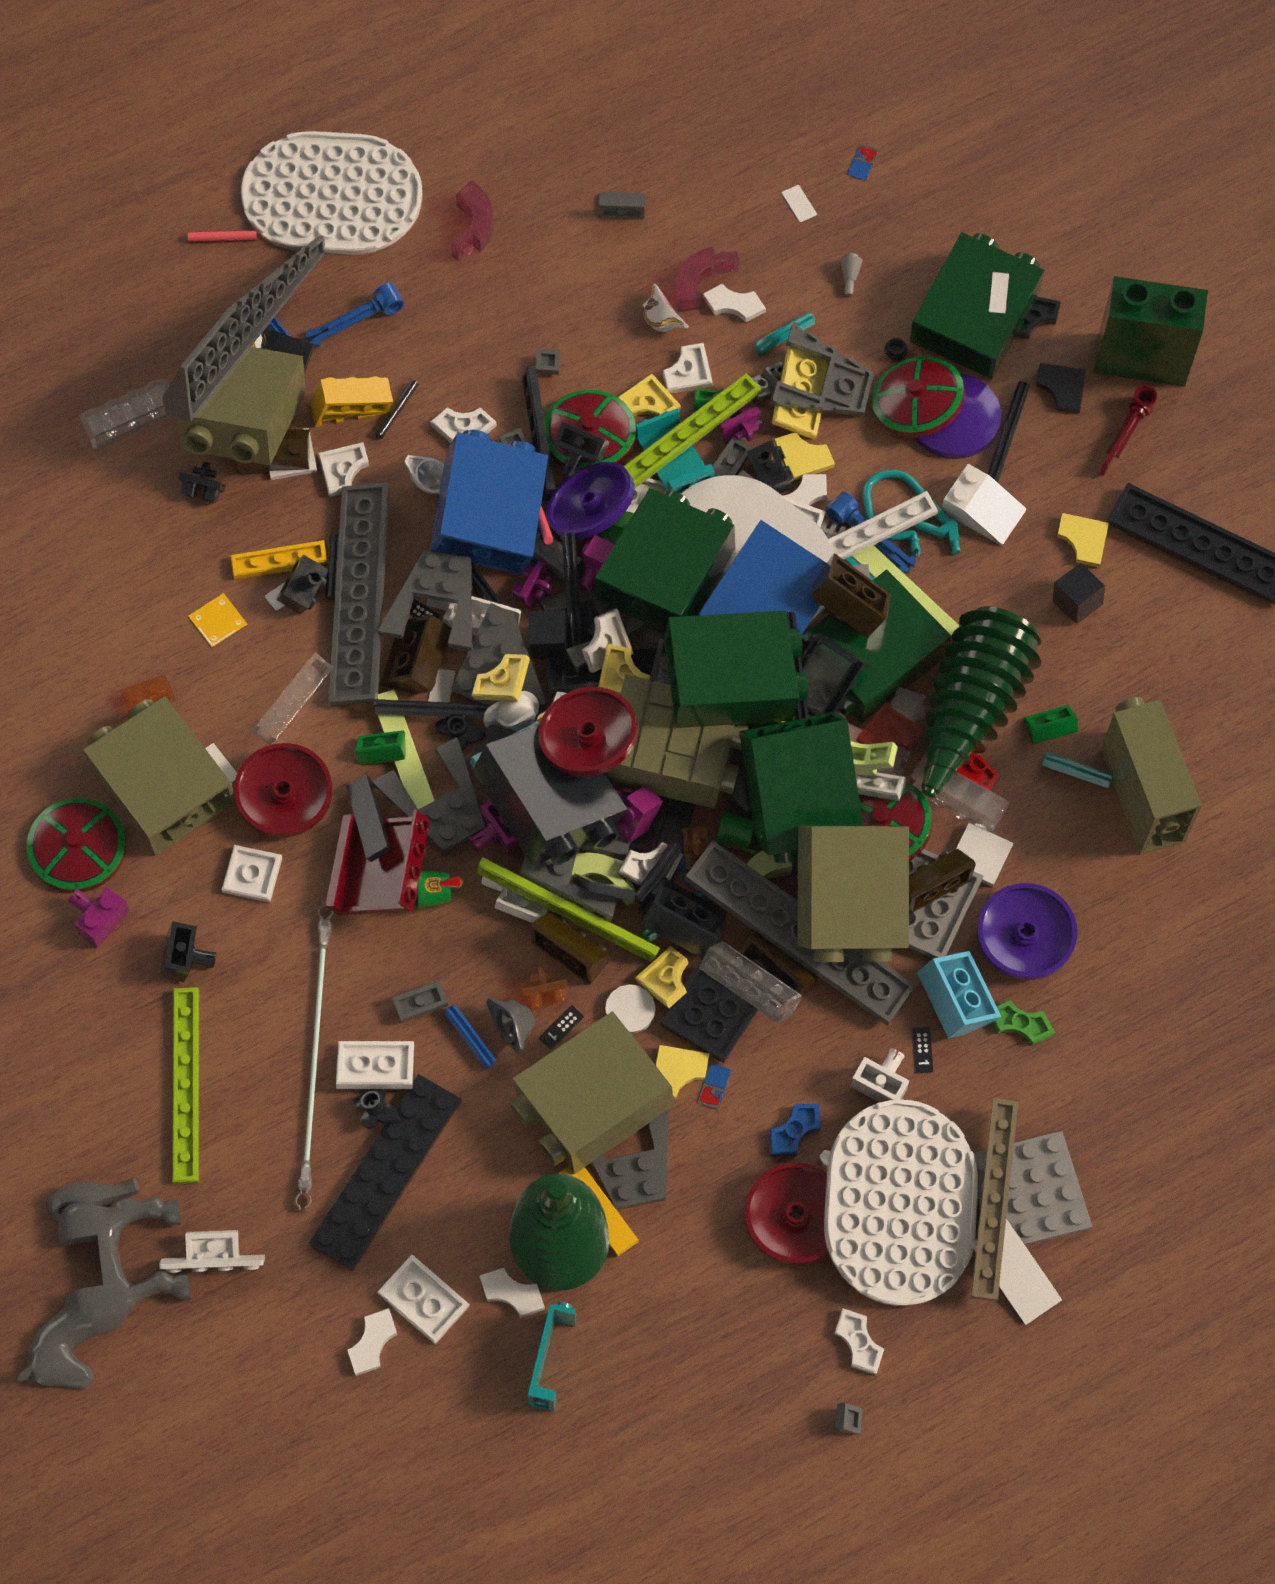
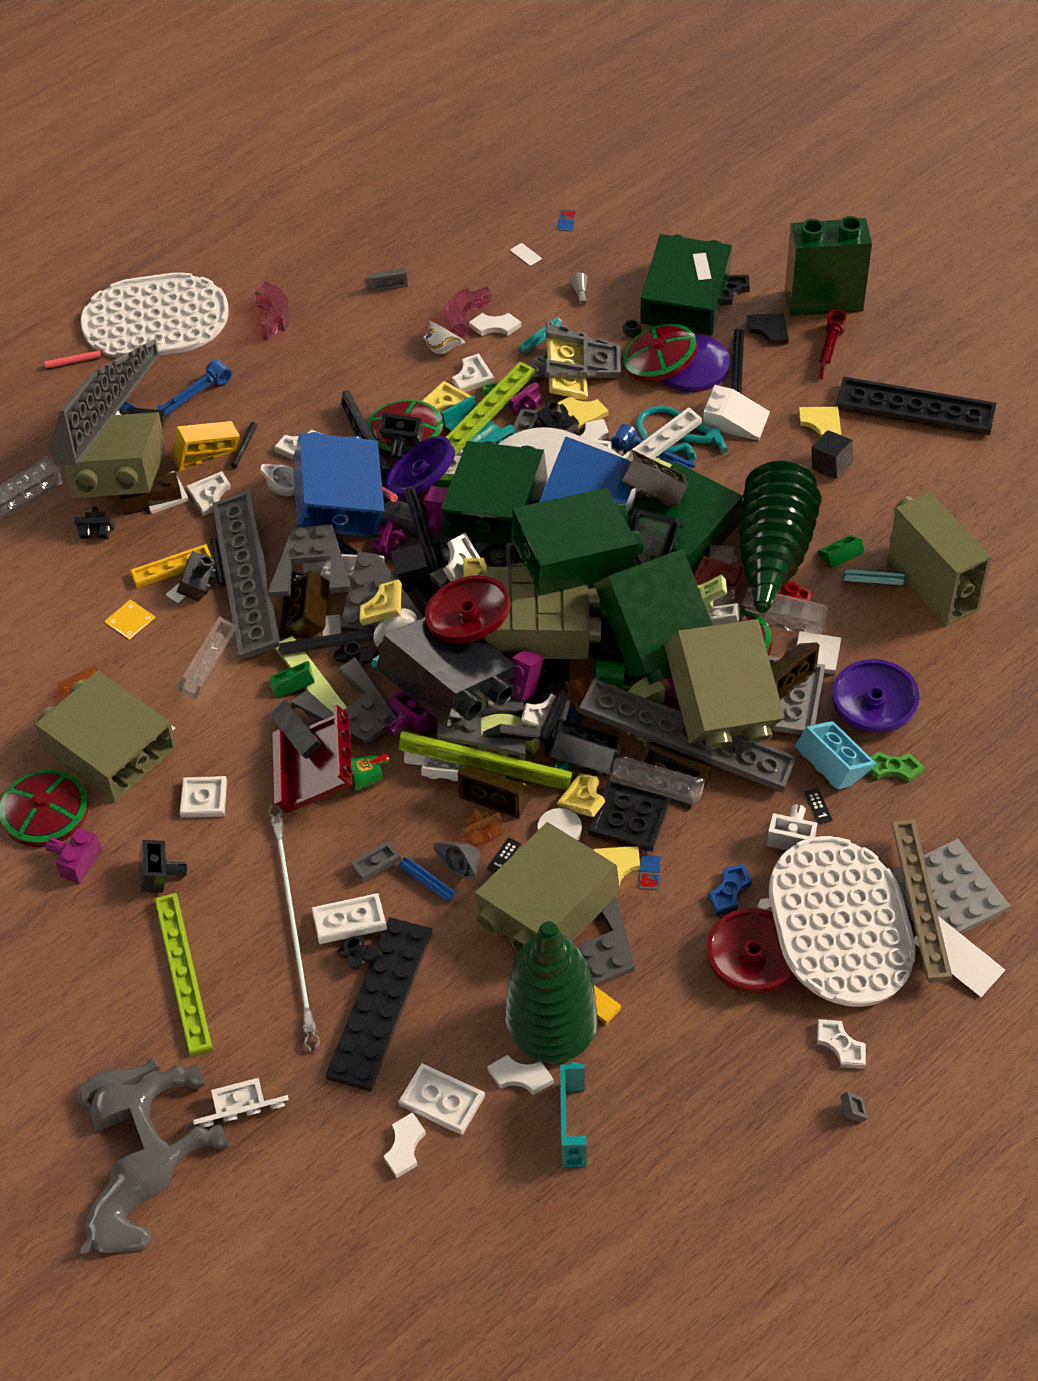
camera: 10 degrees left, 15 degrees down
(283, 790) = (215, 725): dark red dish -> none
(547, 361) = (358, 388): dark grey plate -> none

